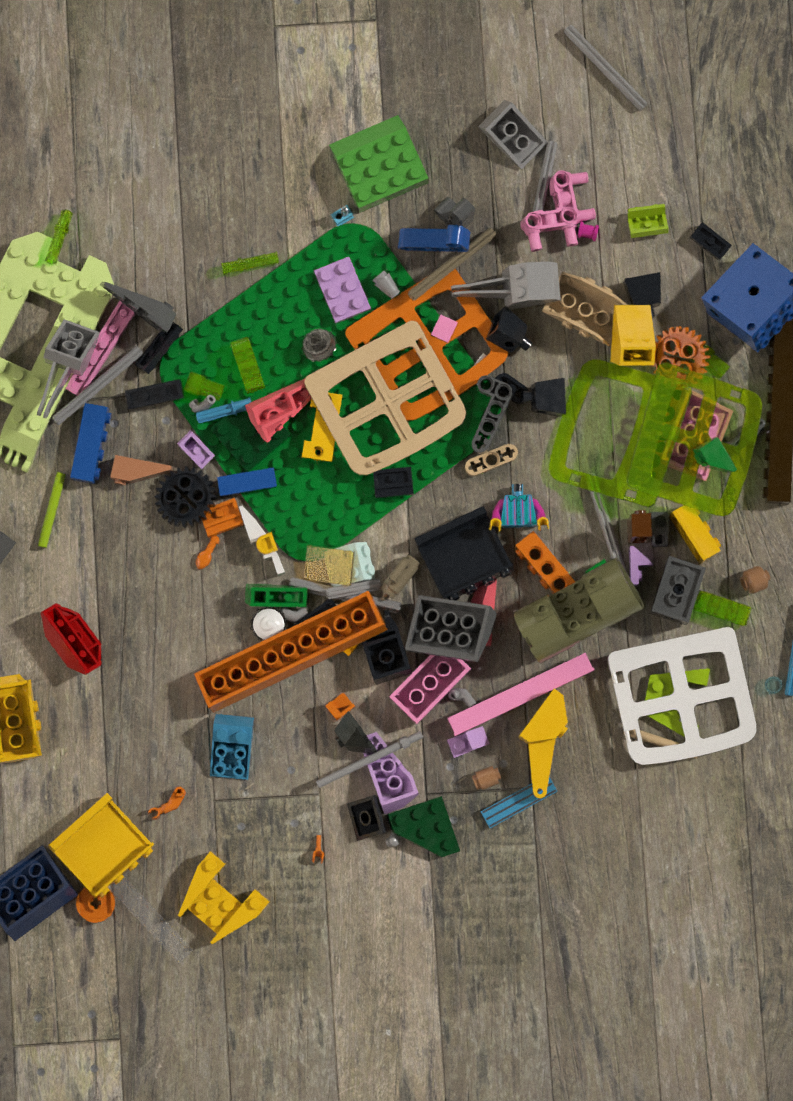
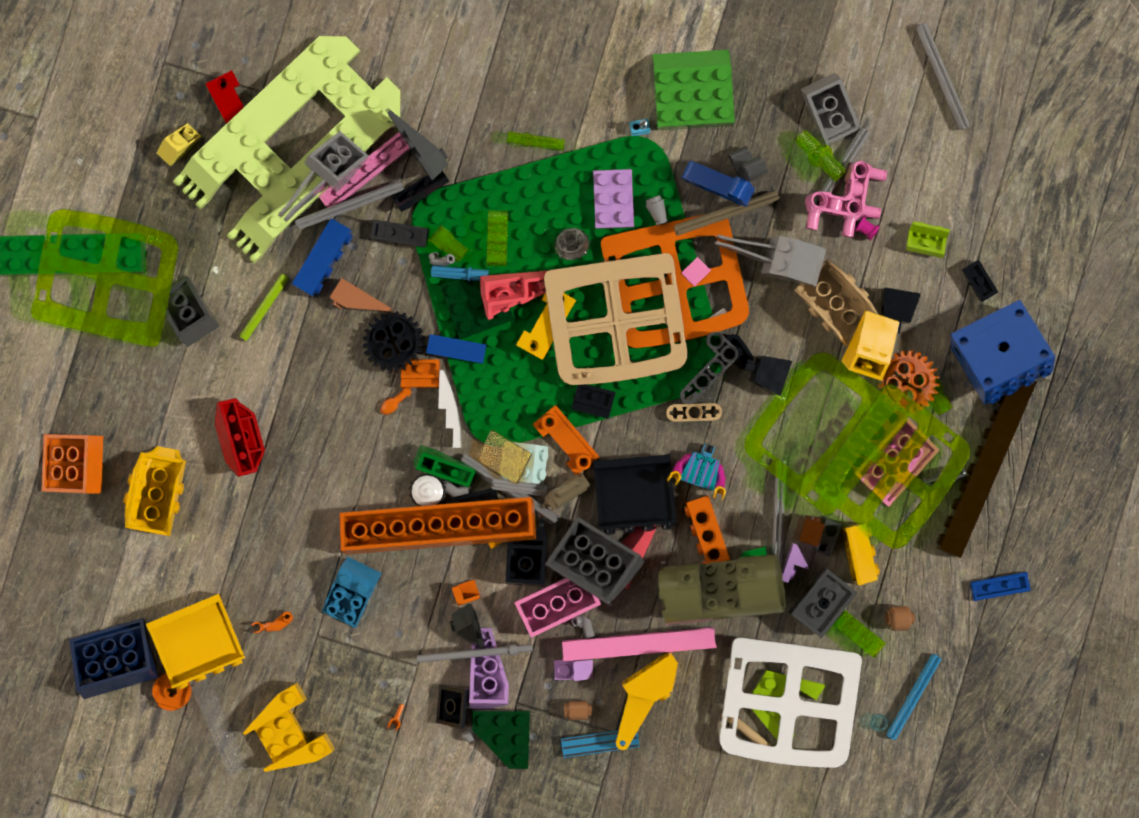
camera: 25 degrees right, 5 degrees up
(61, 230) = (369, 43): clear neon green pin -> none
(195, 449) = (419, 300): lavender slope -> none
(266, 544) = (452, 415): yellow tile -> none
(382, 527) = (567, 438): none -> orange brick
(508, 331) = (755, 297): black torso -> none
(519, 180) = (820, 155): none -> clear neon green piece
(714, 456) = (905, 489): green slope -> none

